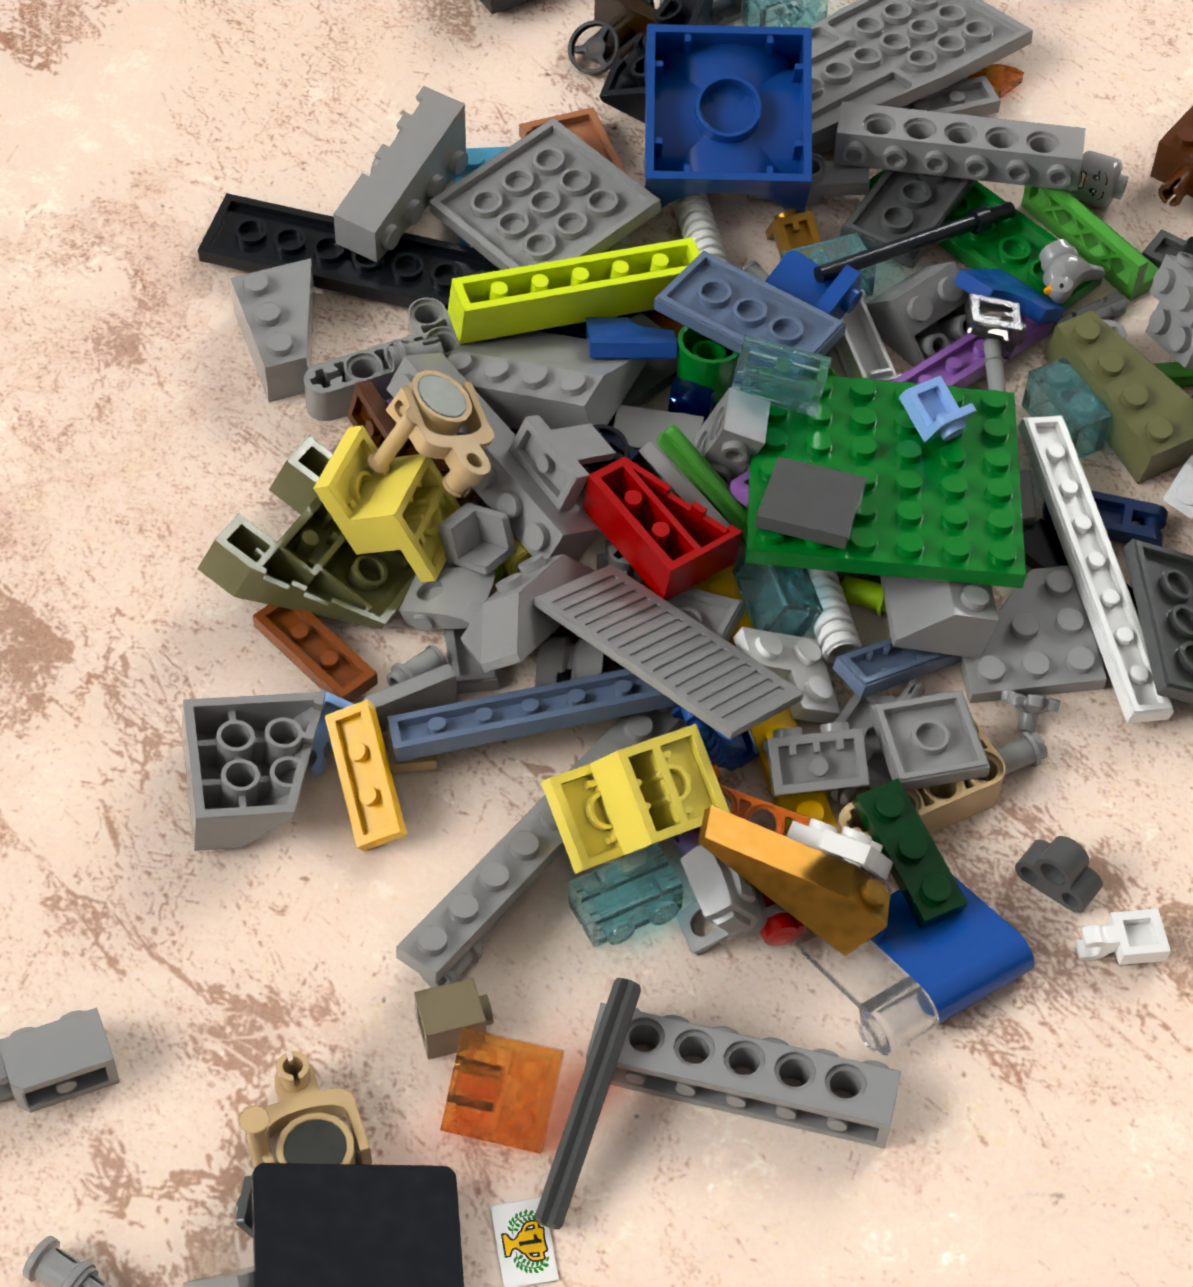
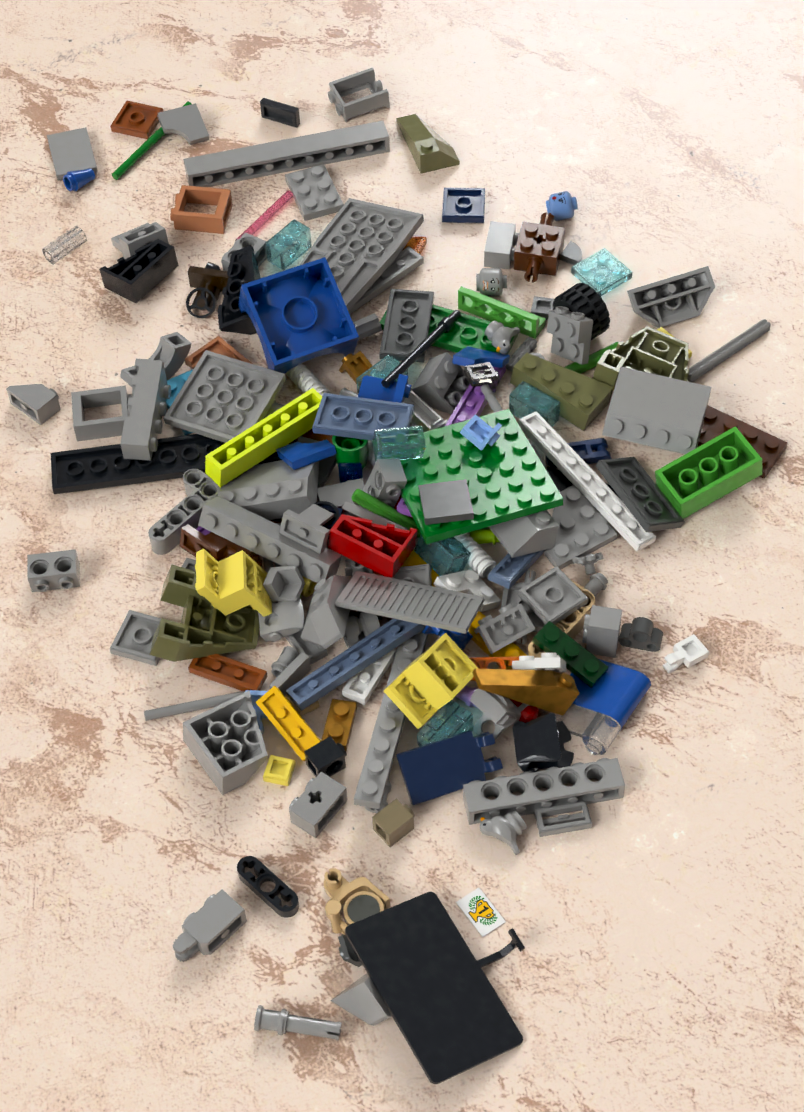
camera: 20 degrees left, 0 degrees up
(128, 378) = (53, 570): none -> light grey brick
(180, 1056) = (270, 898): none -> black beam
(192, 531) = (136, 638): none -> light grey tile
(216, 680) = (189, 706): none -> light grey bar
(249, 106) = (34, 401): none -> light grey slope
(277, 324) = (117, 514): light grey wedge -> none
(311, 848) = (279, 770): none -> light yellow tile
(318, 130) = (99, 428): none -> light grey window
(340, 932) = (317, 804): none -> light grey brick
(396, 860) = (326, 757): none -> black brick
(397, 352) = (196, 504): light grey pin -> none
(430, 416) = (236, 530): tan piece -> none
(452, 812) = (340, 721): none -> pearl gold plate
(494, 109) = (171, 349): none -> light grey arch
(502, 1090) = (436, 845): clear orange plate -> none
(533, 757) = (362, 685): none -> white plate
(576, 952) = (446, 765): none -> dark blue tile
(587, 1104) = (481, 833): dark grey axle -> none
(641, 1114) = (504, 828): none -> light grey animal
(750, 1156) = (563, 823): none -> light grey tile
(778, 990) = (541, 744): none -> black piece
(959, 146) = (419, 290): light grey brick -> none
(989, 835) = (602, 630): none -> light grey brick
(1115, 42) = (463, 205): none -> plate
(1141, 124) = (500, 245): none -> brick

